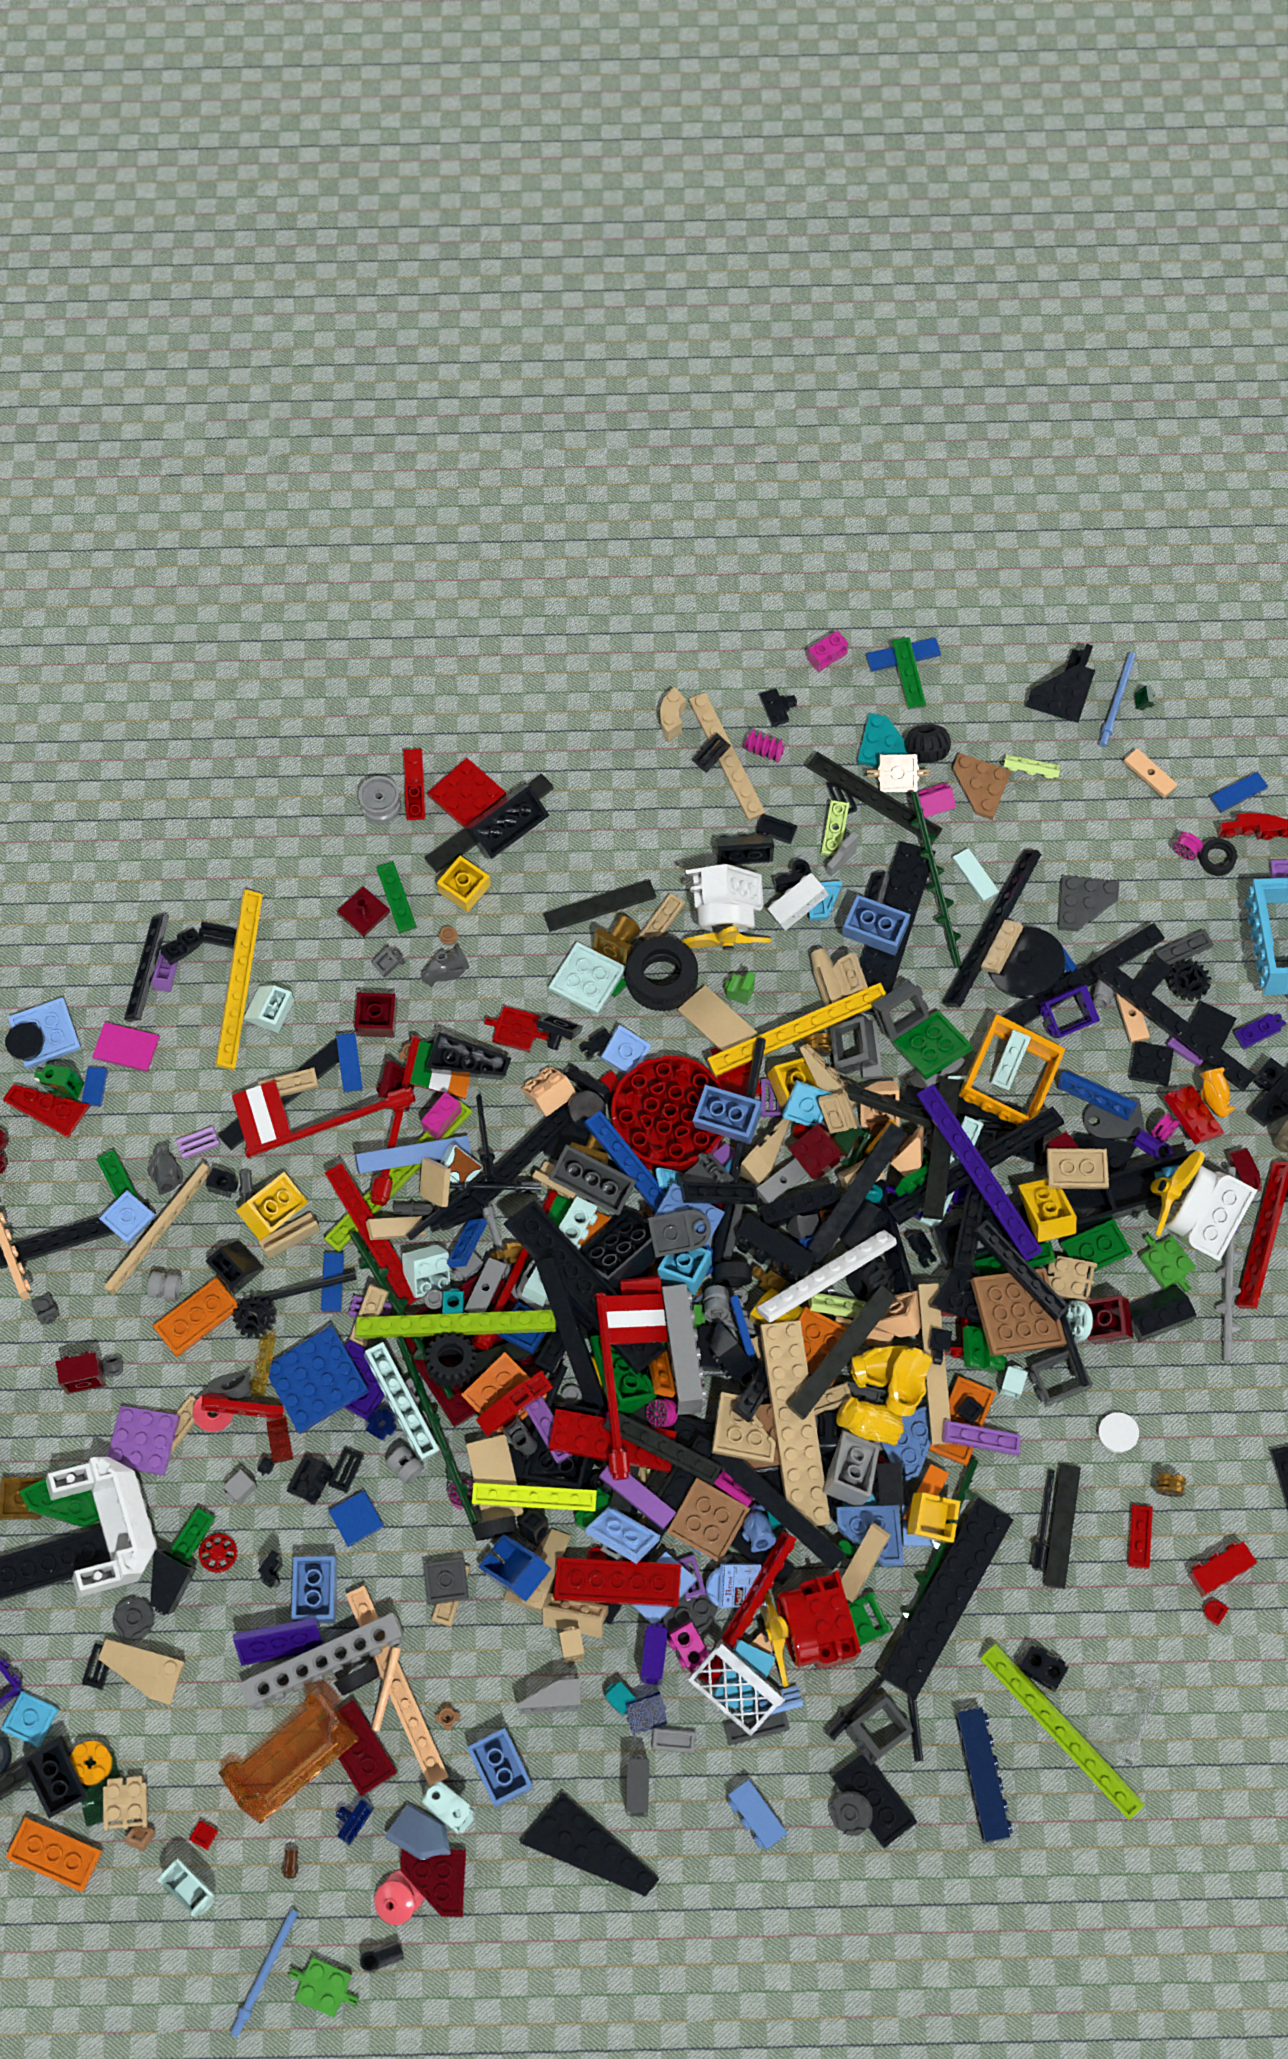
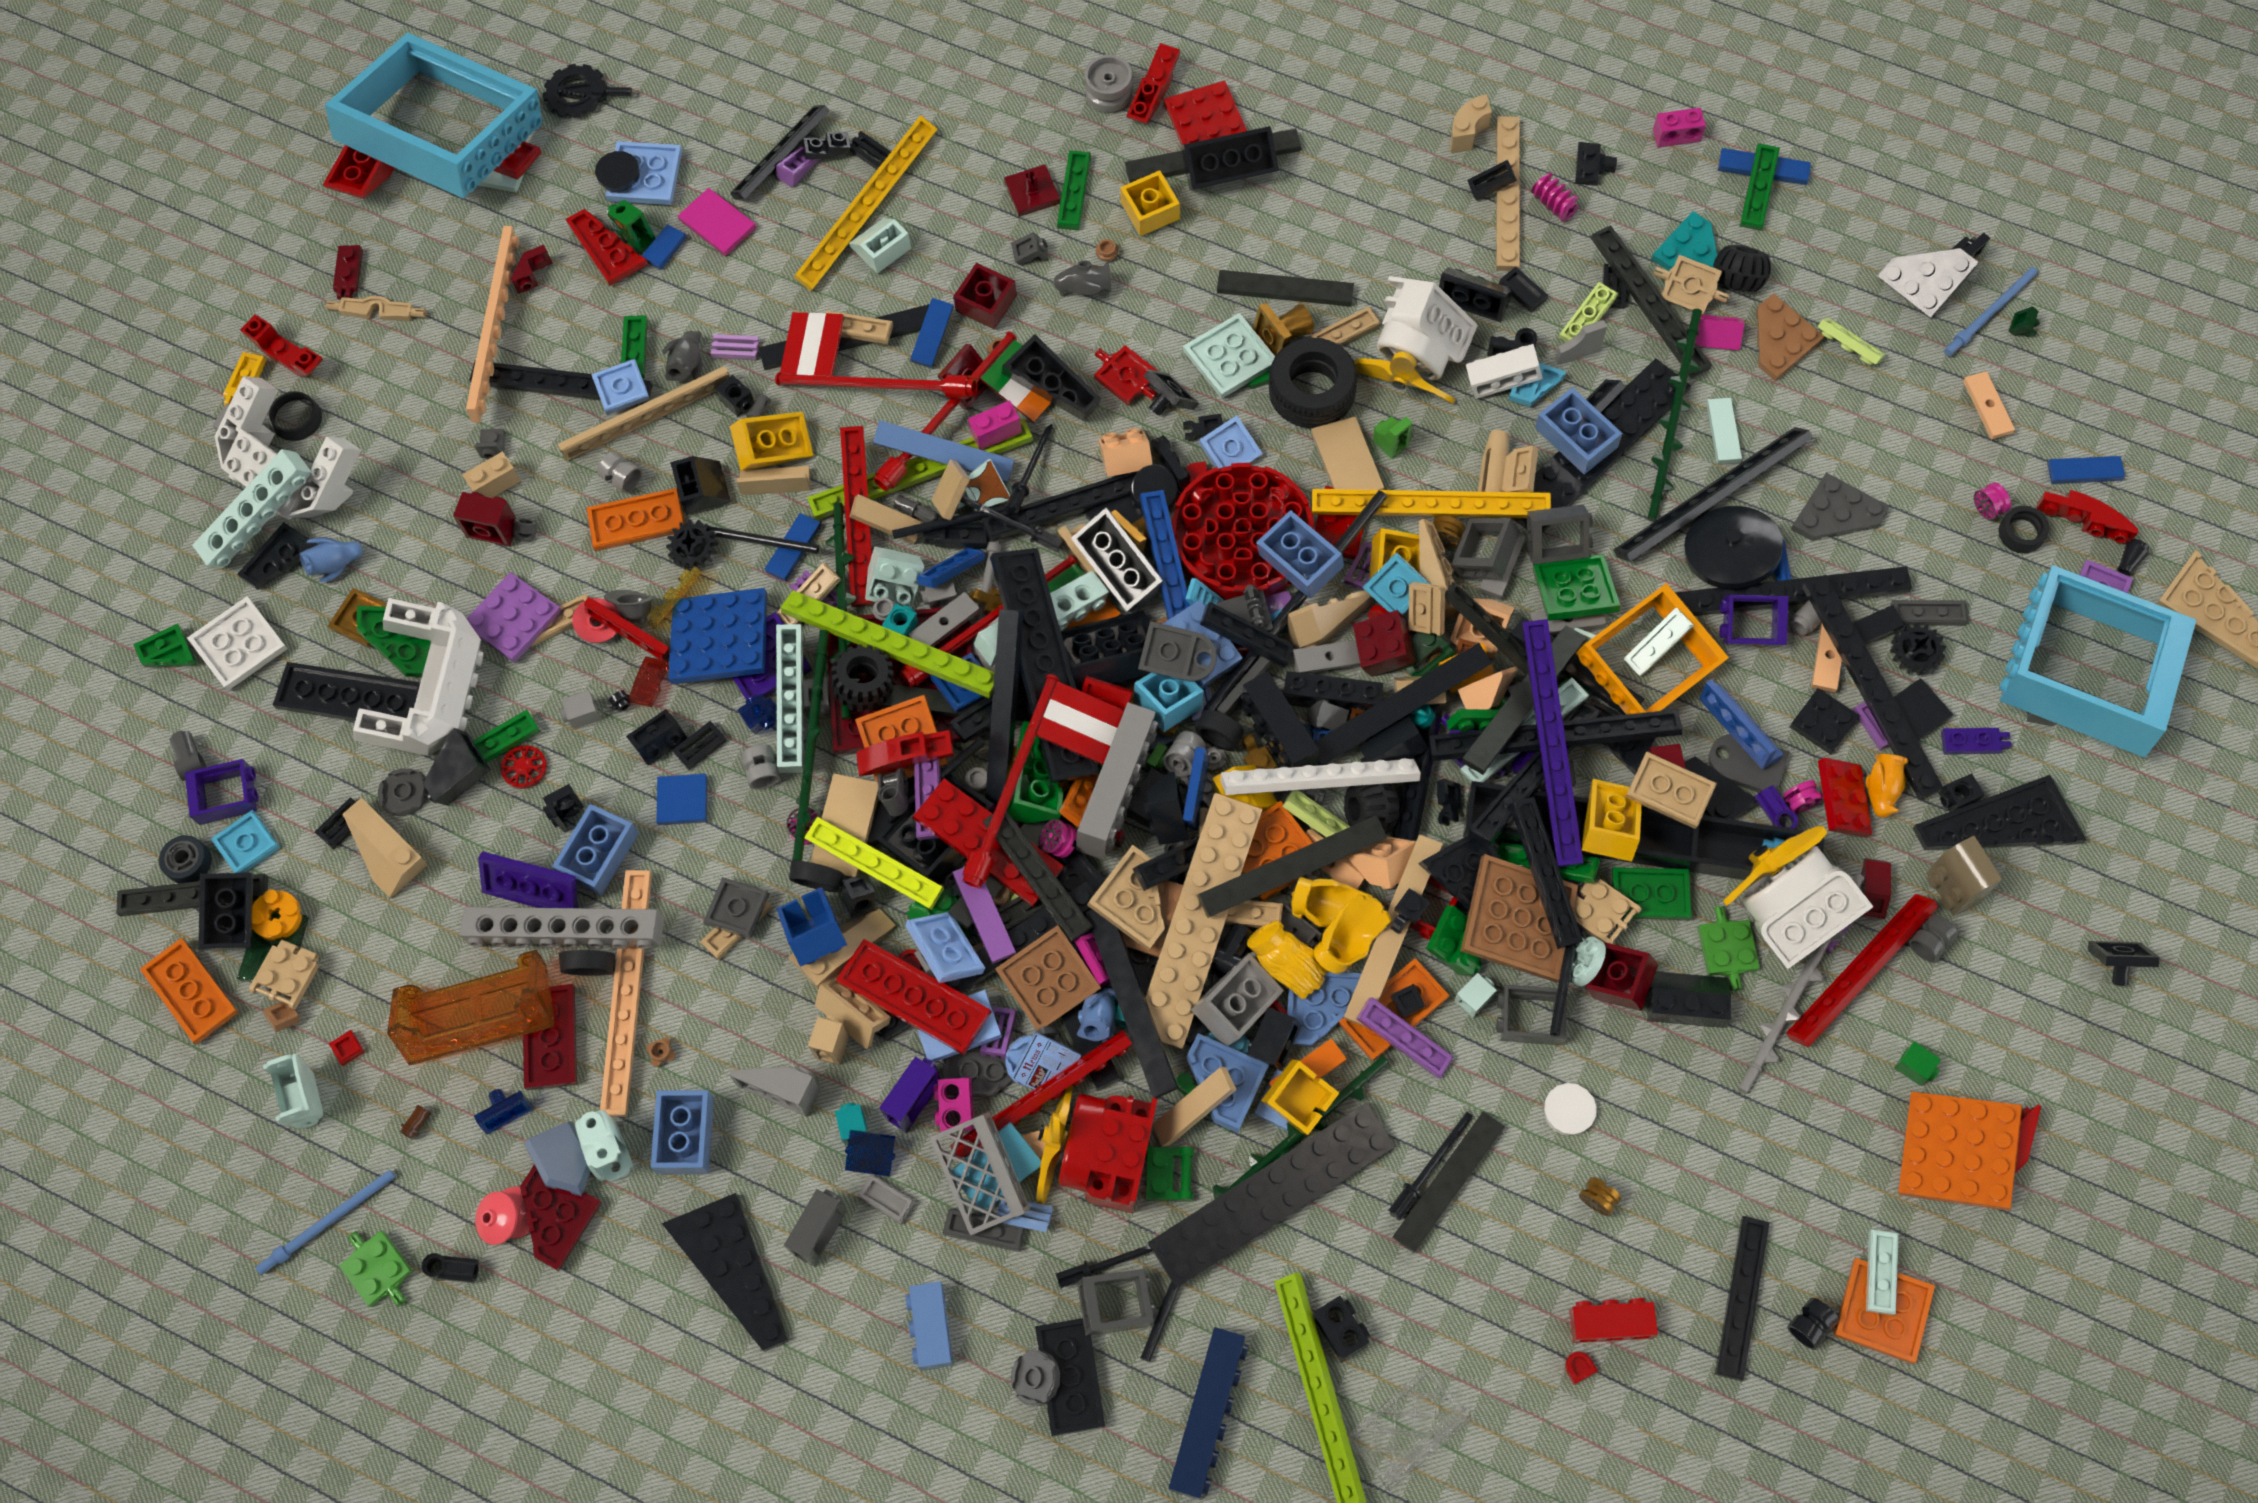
camera: 30 degrees right, 0 degrees up
(63, 1337) = (492, 476): none -> tan brick
(386, 1688) = (611, 988): light nougat bar -> none
(1002, 946) = (1712, 516): tan plate -> none
(1140, 1537) = (1534, 1238): red tile -> none

